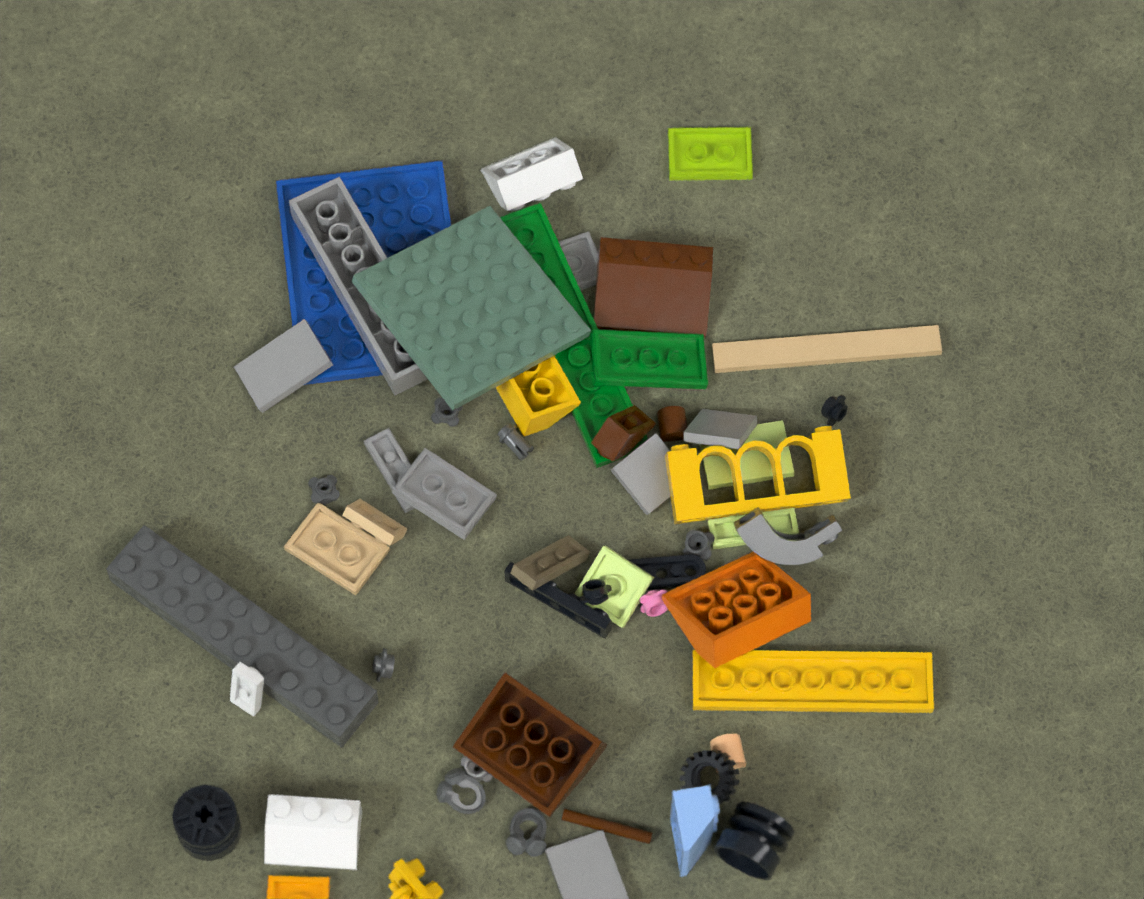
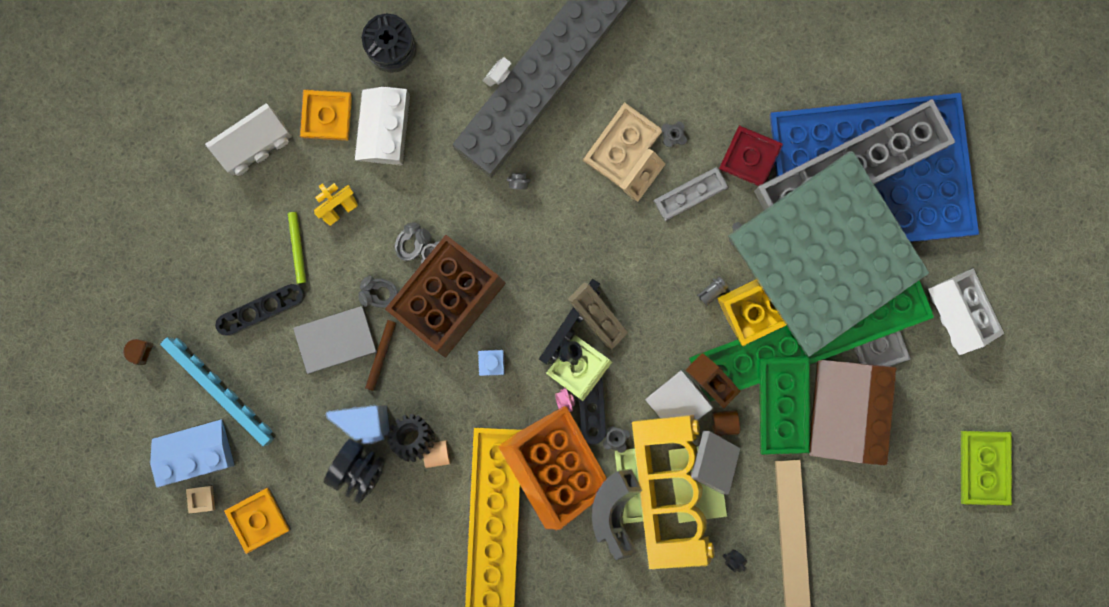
camera: 95 degrees right, 20 degrees up
(283, 365) = (784, 100): light grey tile -> none
(351, 402) = (751, 156): none -> dark red tile
(444, 493) = (666, 231): light grey tile -> none
(612, 687) = (491, 363): none -> light blue brick

